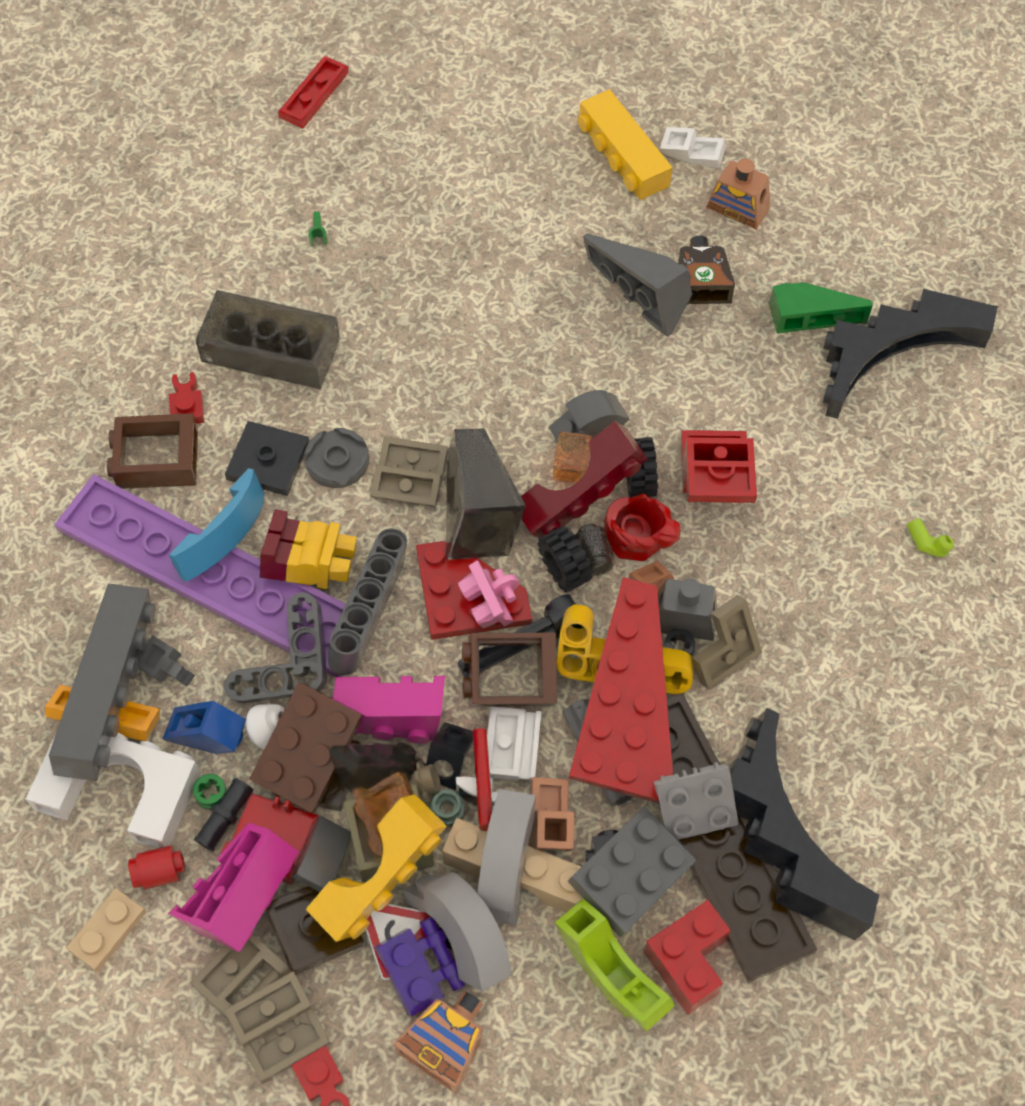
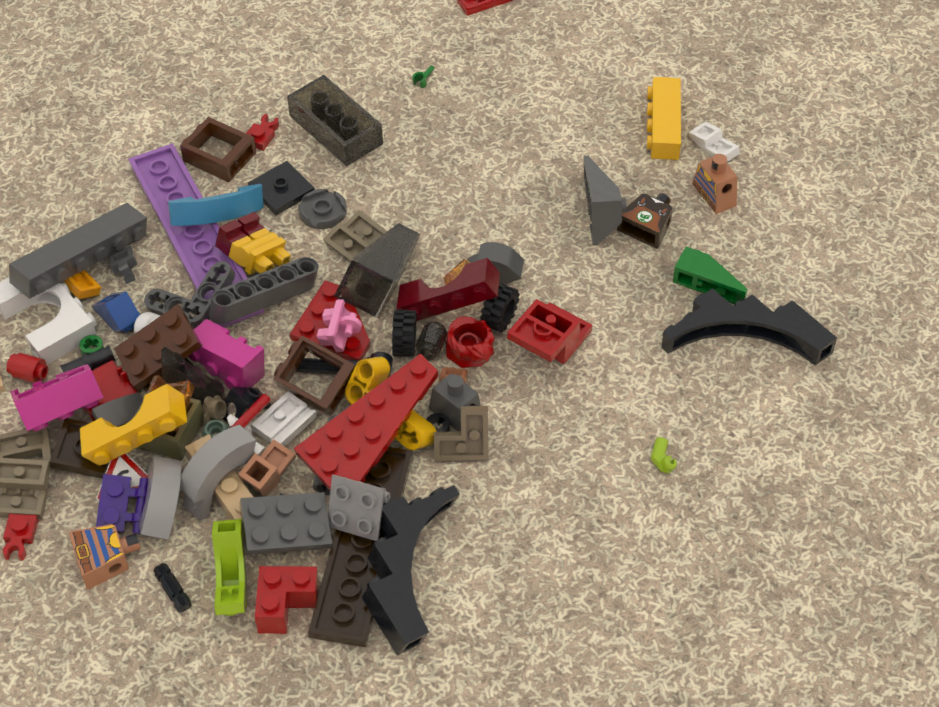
camera: 35 degrees right, 10 degrees down
(554, 1026) = (172, 587): none -> black axle

